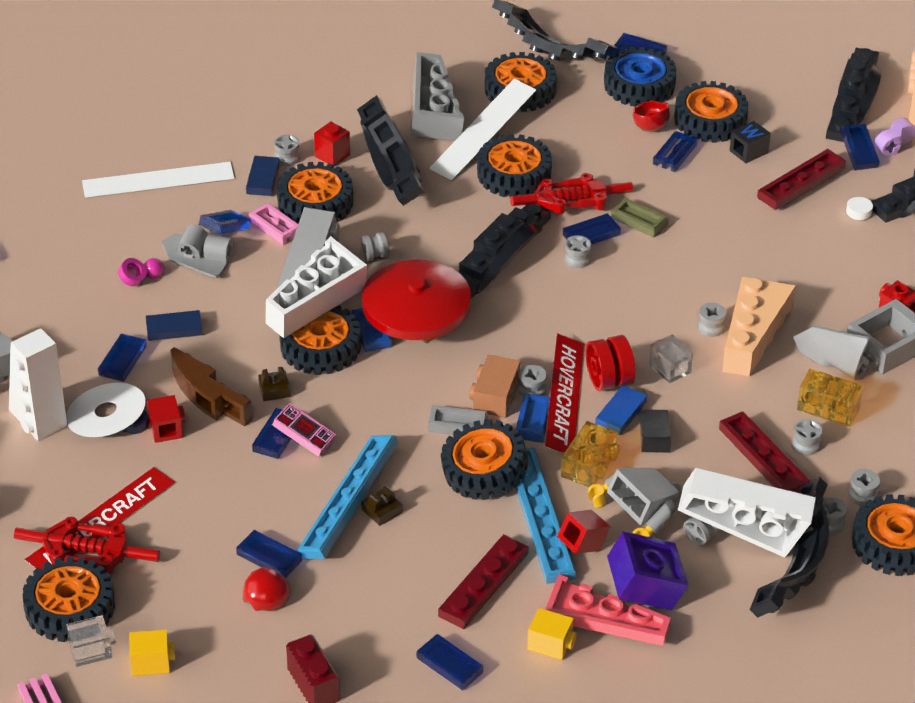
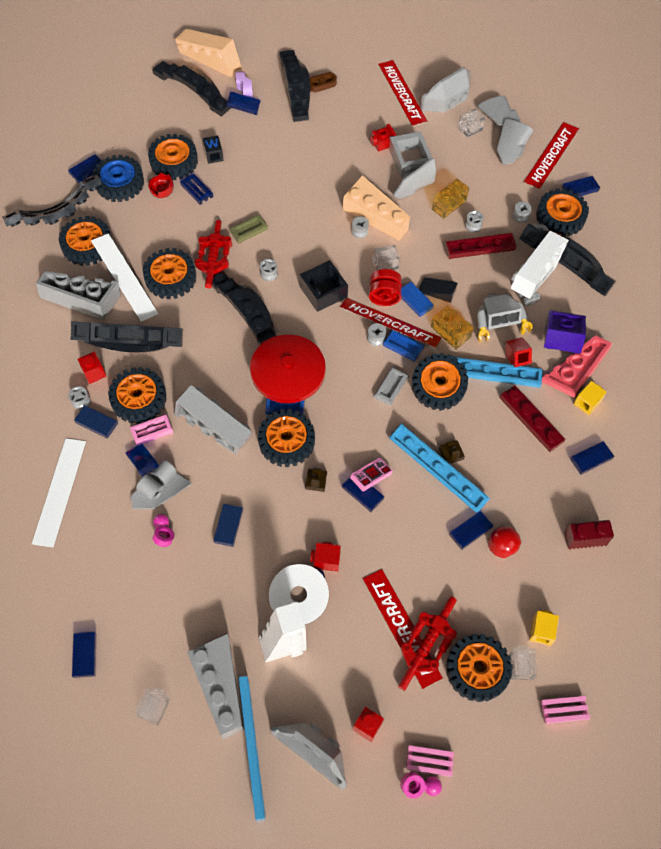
camera: 70 degrees left, 20 degrees up
(122, 357) = (246, 568): clear blue tile -> none
(205, 392) = (299, 525): reddish brown slope -> none
(315, 288) = (258, 418): white wedge -> none
(374, 246) = (211, 377): light grey wheel -> none
(495, 385) = (373, 354): nougat brick -> none
(580, 307) = (323, 285): none -> black container
(594, 229) = (250, 257): clear blue tile -> none
(801, 179) = (258, 140): dark red plate -> none
(859, 208) = (294, 125): white tile -> none

